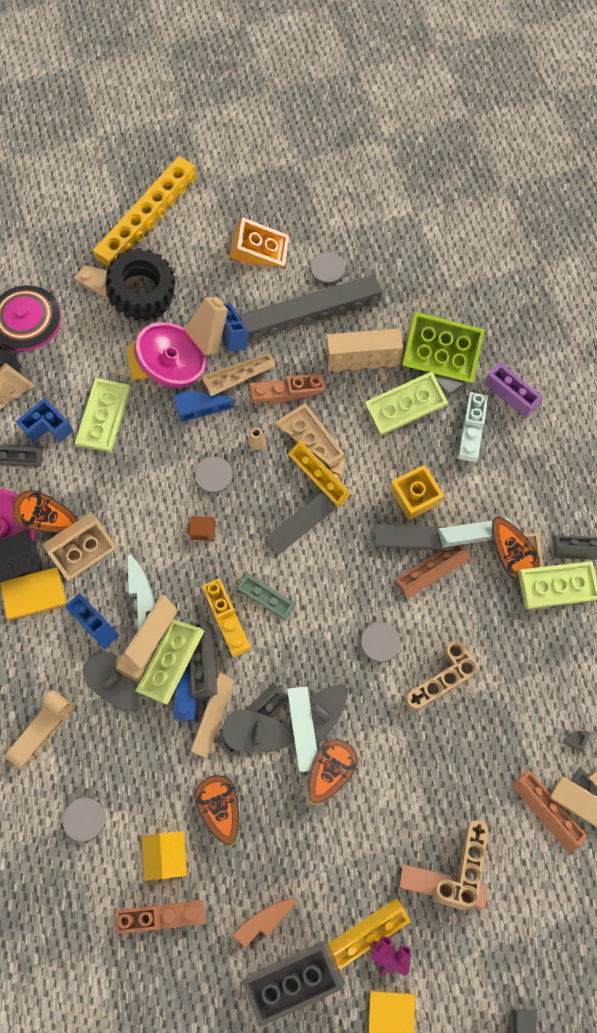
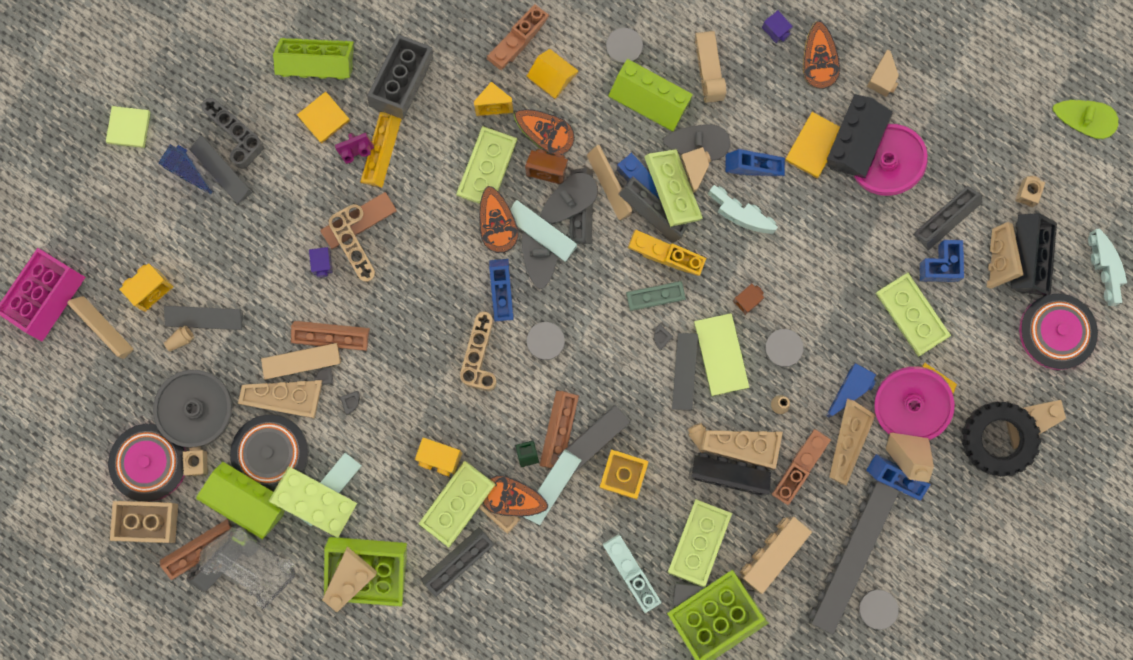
camera: 135 degrees right, 10 degrees up
(41, 512) = (867, 198): shield -> none
(79, 546) = (820, 204): tan slope -> none
(109, 754) = (650, 95): none -> lime slope
(146, 211) = (1093, 579): yellow brick -> none
(150, 633) = (704, 190): tan slope -> none
(236, 876) = (493, 102): none -> yellow slope
(247, 775) = (546, 166): none -> dark orange slope
(258, 244) = (952, 573): light orange slope -> none
(261, 511) = (721, 354): none -> yellowish green tile
(264, 920) = (452, 94): nougat slope -> none
(291, 563) = (662, 337): none -> dark grey tile
(292, 829) = (486, 164): none -> yellowish green tile
(319, 474) = (707, 419): yellow slope -> none
(342, 424) = (730, 475): none -> black slope
(377, 713) = (501, 289): none -> blue slope
(471, 575) = (527, 453): none -> dark green slope
(506, 880) = (320, 261): none -> dark purple brick
(513, 390) = (629, 635): medium lavender brick -> none
(545, 628) = (438, 456): none -> yellow brick

